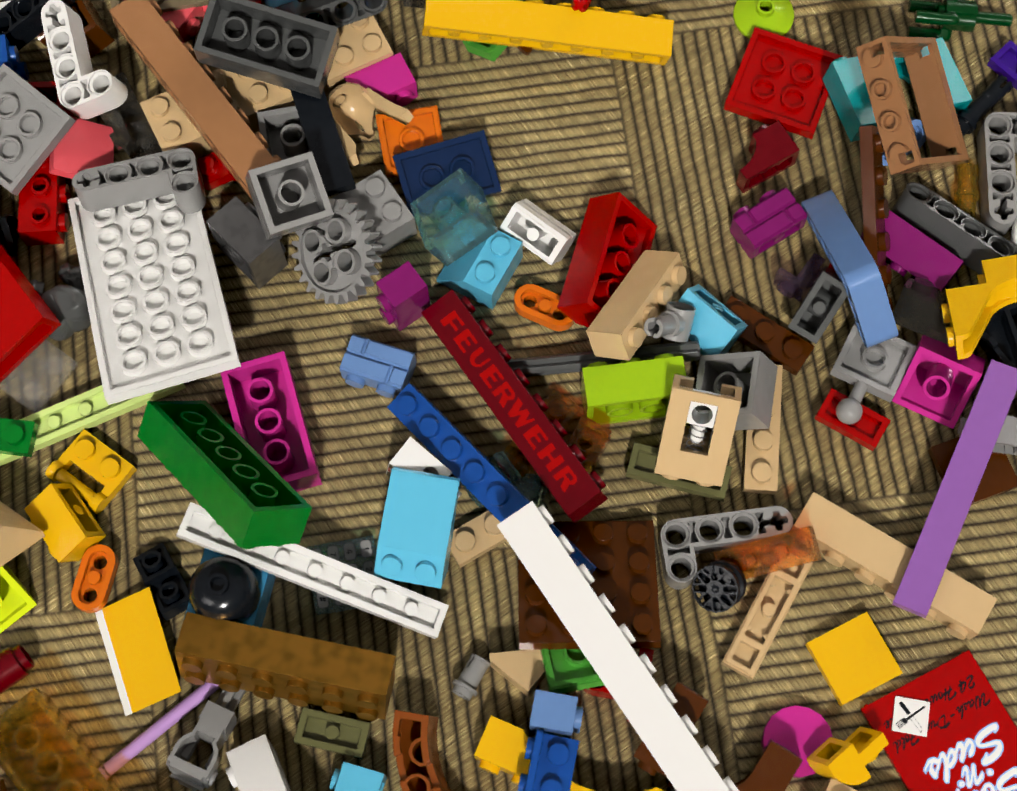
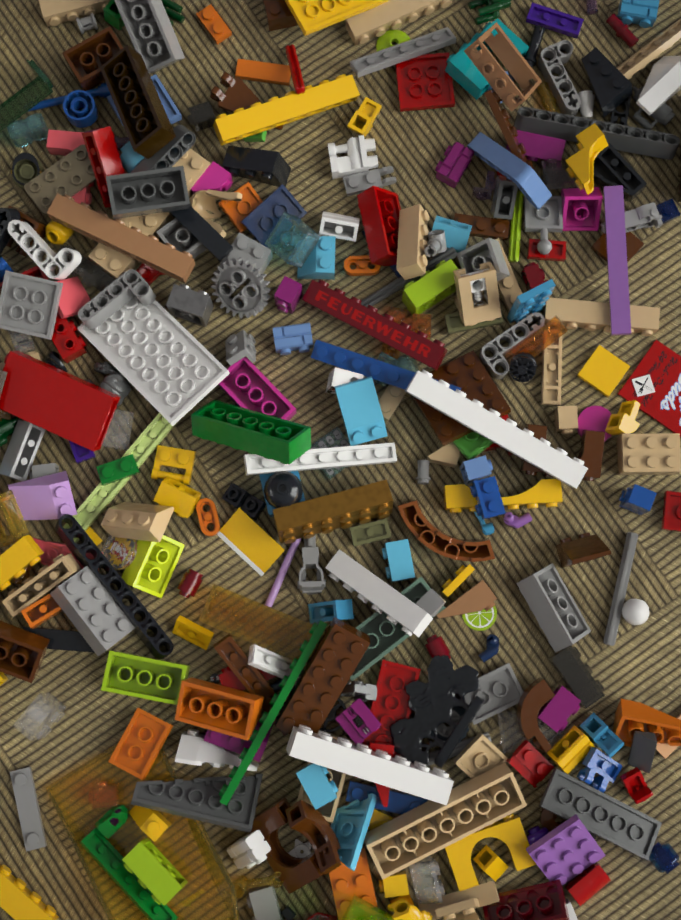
camera: 30 degrees left, 10 degrees up
(118, 54) = (57, 233): none -> yellow head
(289, 195) = (206, 271): light grey brick -> none
(290, 337) = (239, 346): none -> light grey bracket
(463, 89) = (257, 165): none -> black wedge
(602, 181) = (360, 182): none -> light grey hinge
(620, 148) = (356, 158): none -> white hips
(658, 94) = (363, 119): none -> yellow brick
(750, 708) = (566, 419): none -> tan brick
(770, 24) = (402, 52): none -> light grey tile
(771, 154) = (437, 124): dark red arch -> none
(779, 482) = (531, 301): none -> dark azure plate
(809, 453) = (532, 275): none -> dark red brick
(819, 362) = (515, 231): none -> lime axle

